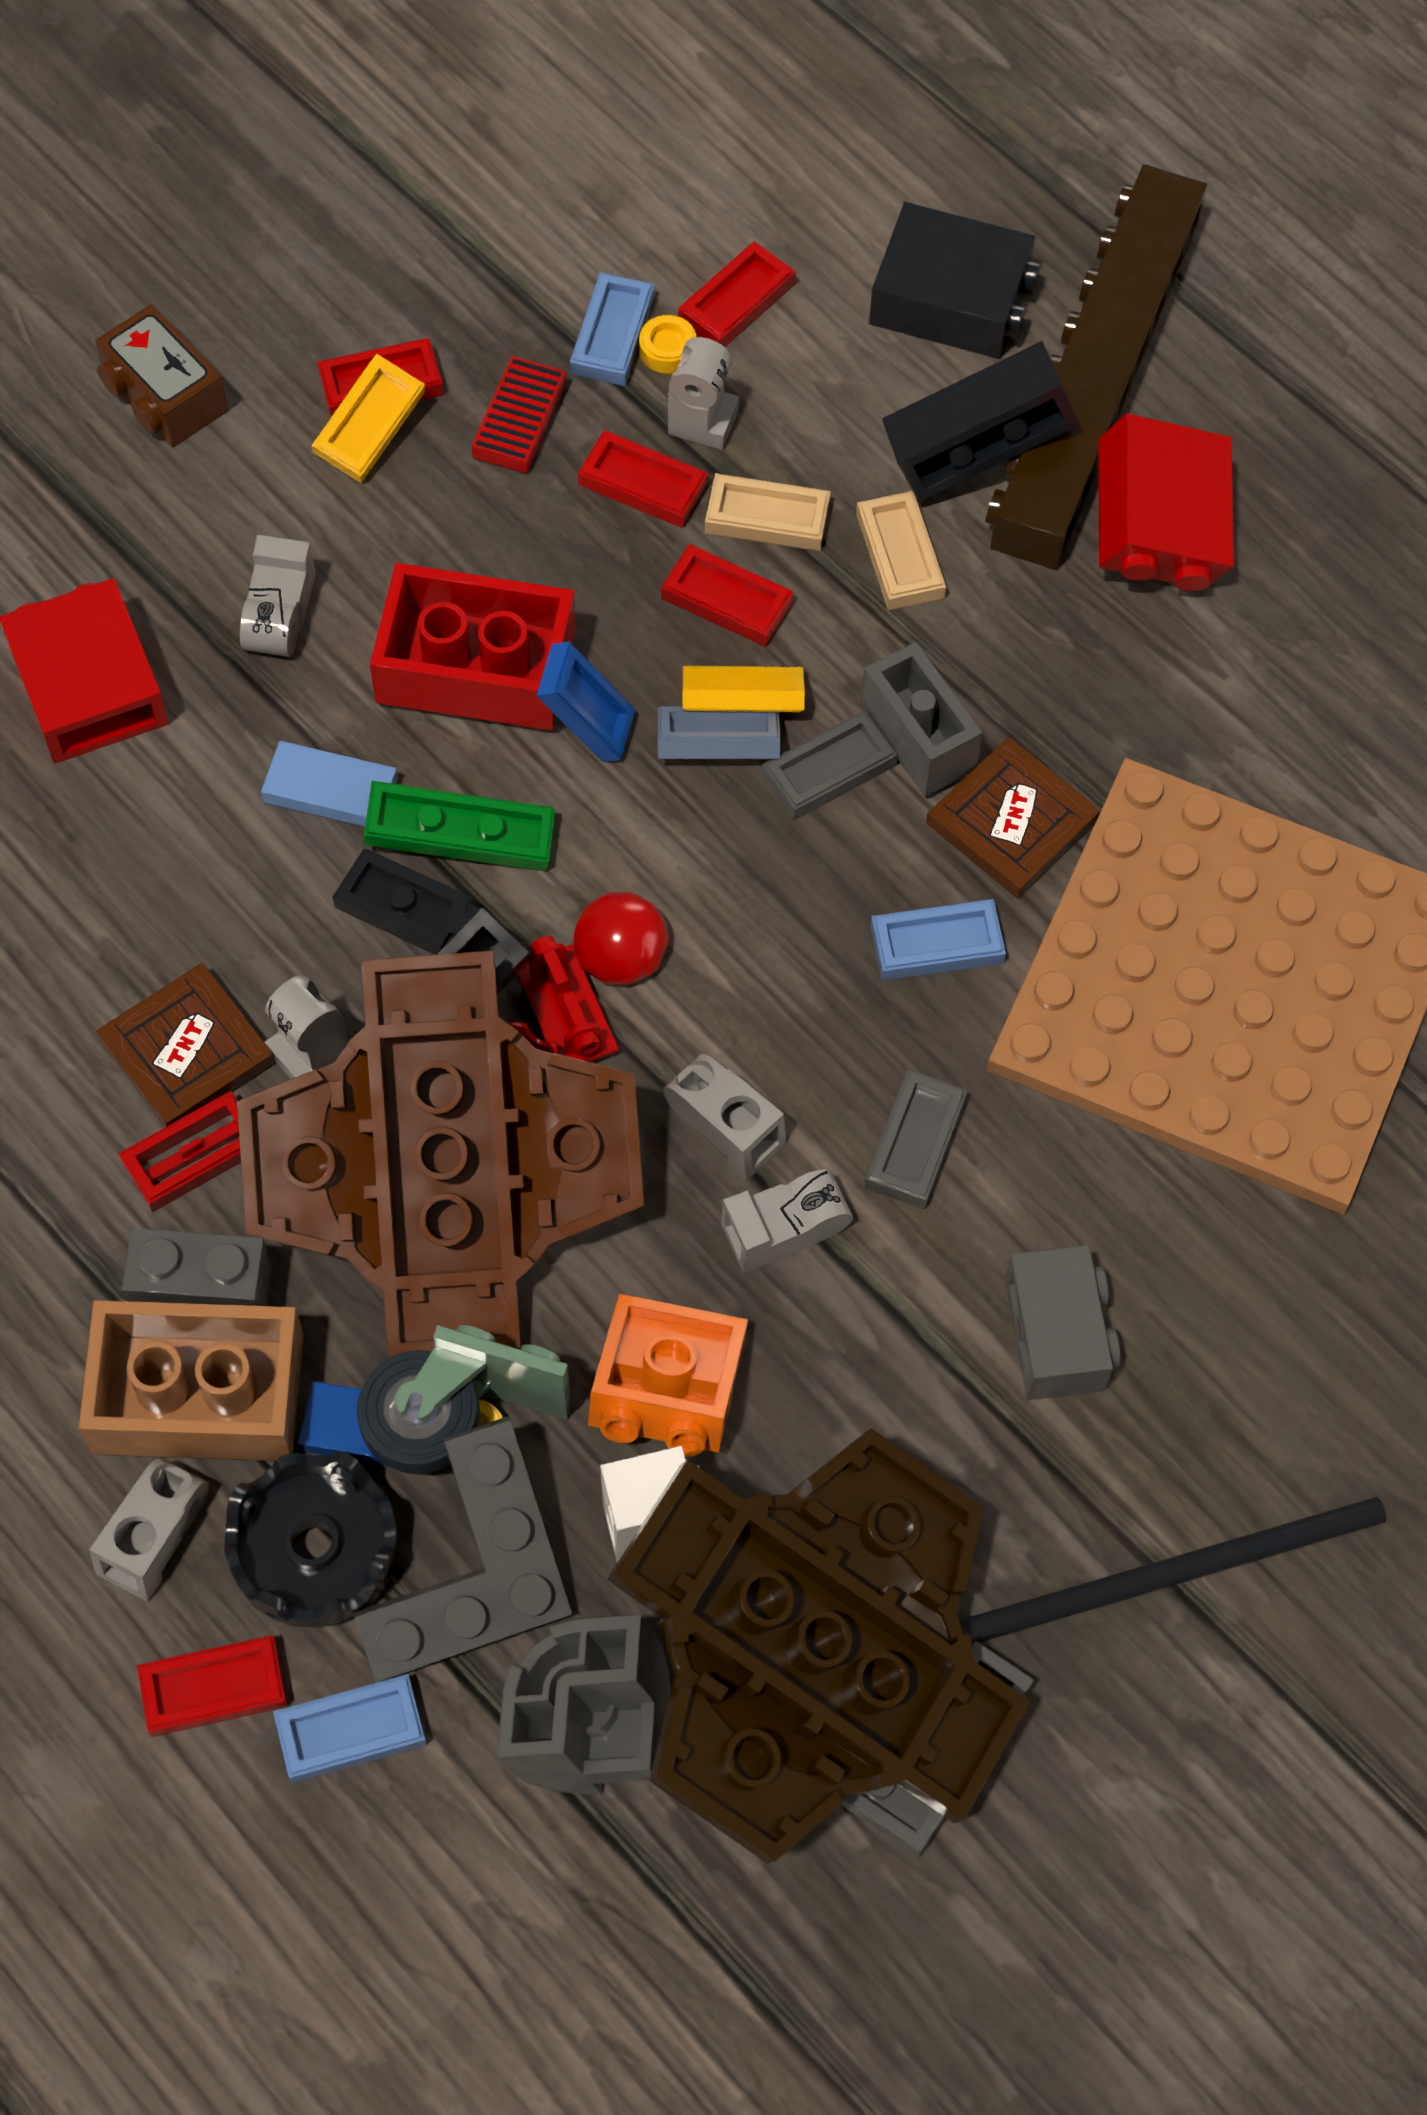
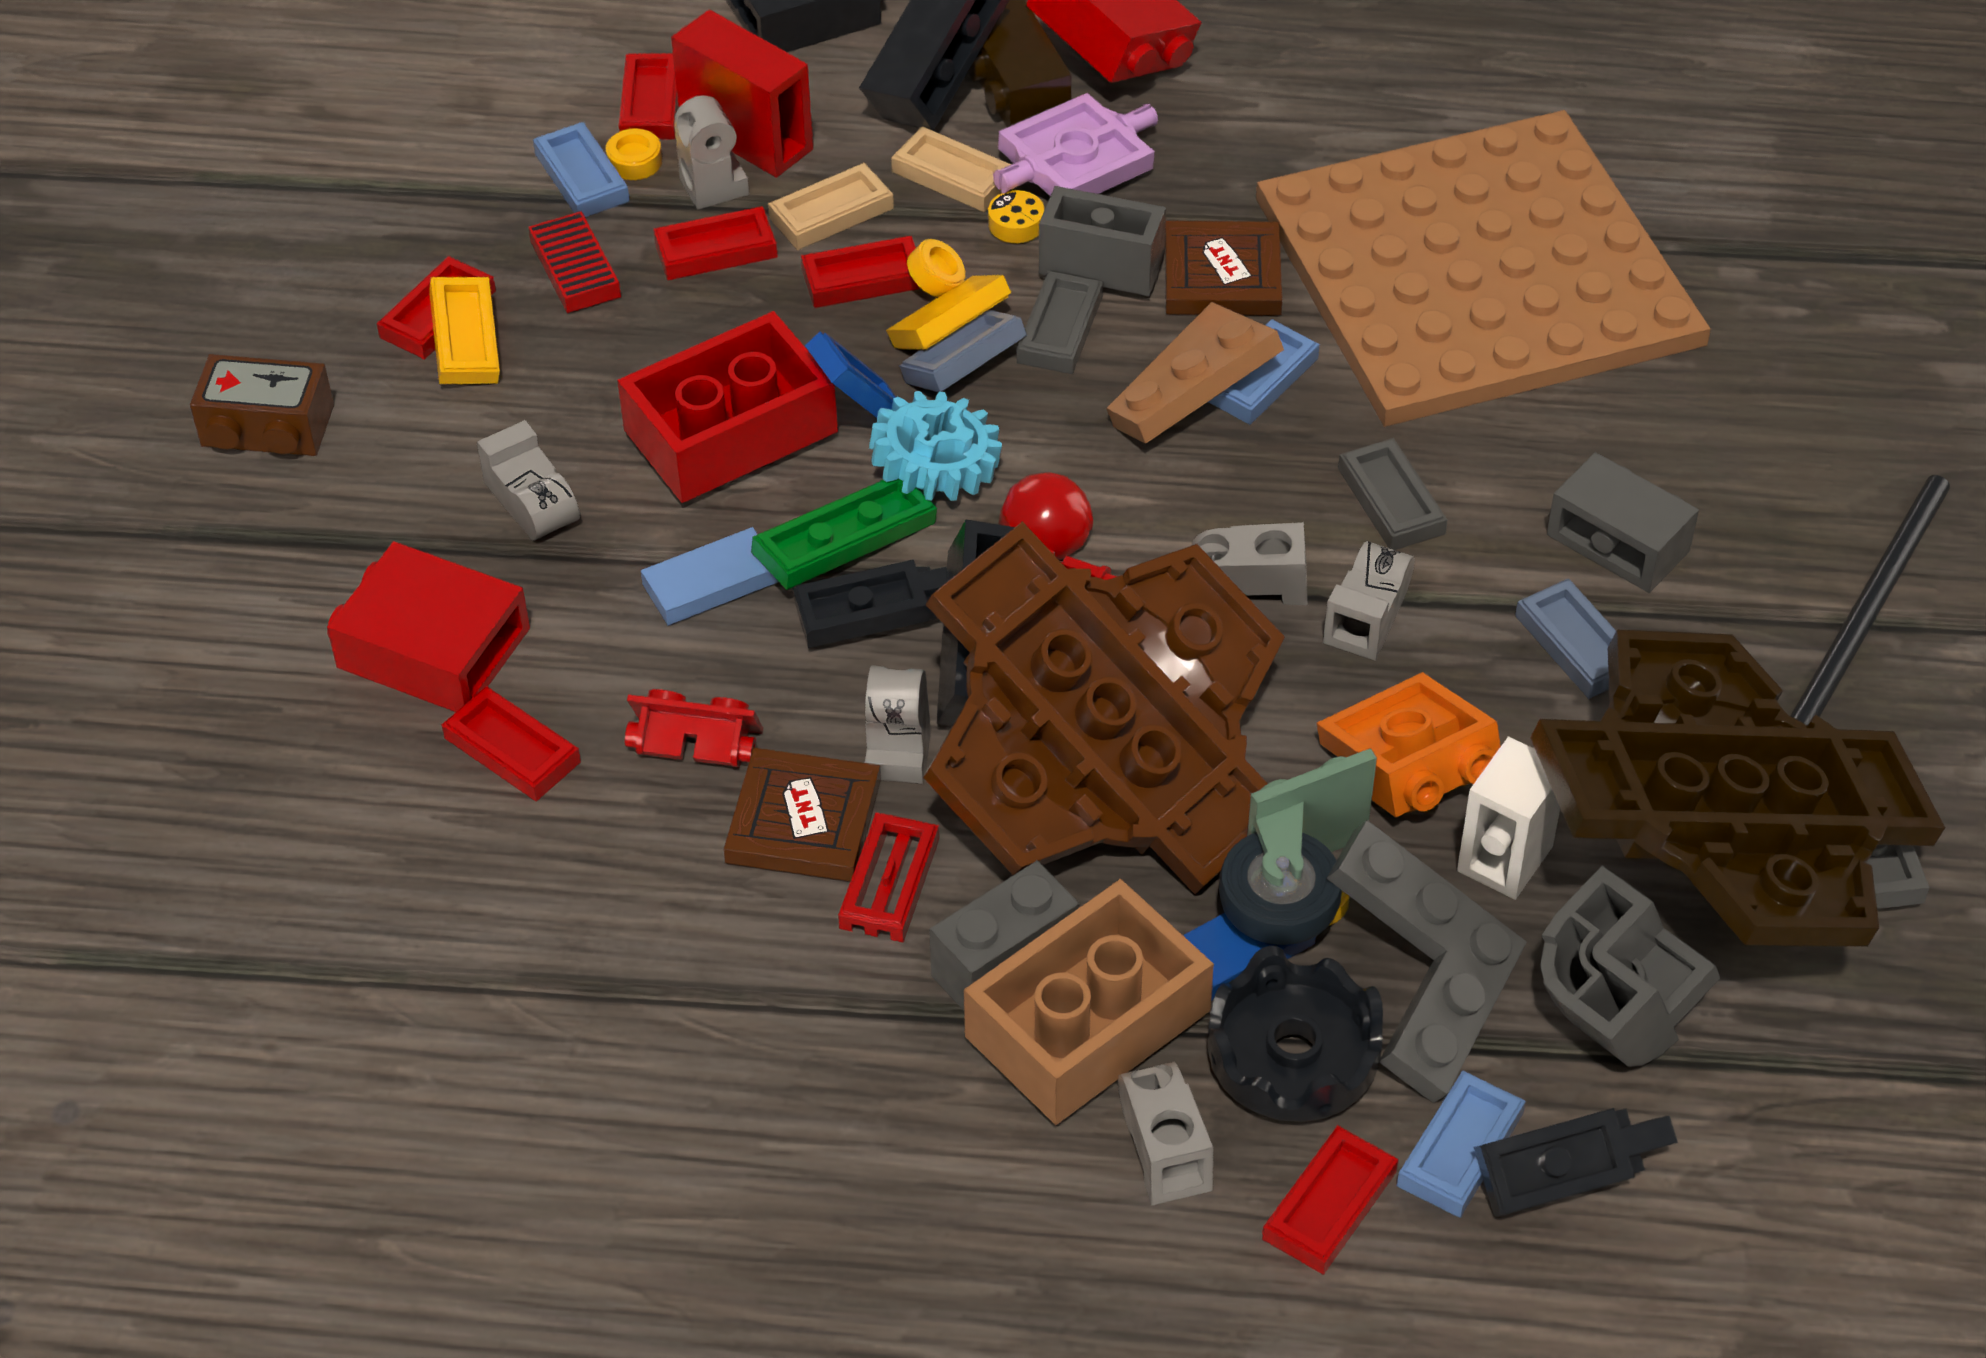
camera: 40 degrees left, 15 degrees down
(53, 815) = (511, 743): none -> red tile
(165, 890) = (669, 719): none -> red hinge
(400, 1815) = (1568, 1158): none -> black hinge
(593, 813) = (935, 445): none -> medium azure gear
(777, 638) = (936, 267): none -> yellow tile
(781, 354) = (755, 84): none -> red brick
(873, 898) = (1192, 370): none -> medium nougat wing
(898, 628) = (1015, 216): none -> yellow tile
(918, 1389) = (1570, 633): none -> sand blue tile
(1009, 610) = (1076, 147): none -> lavender plate

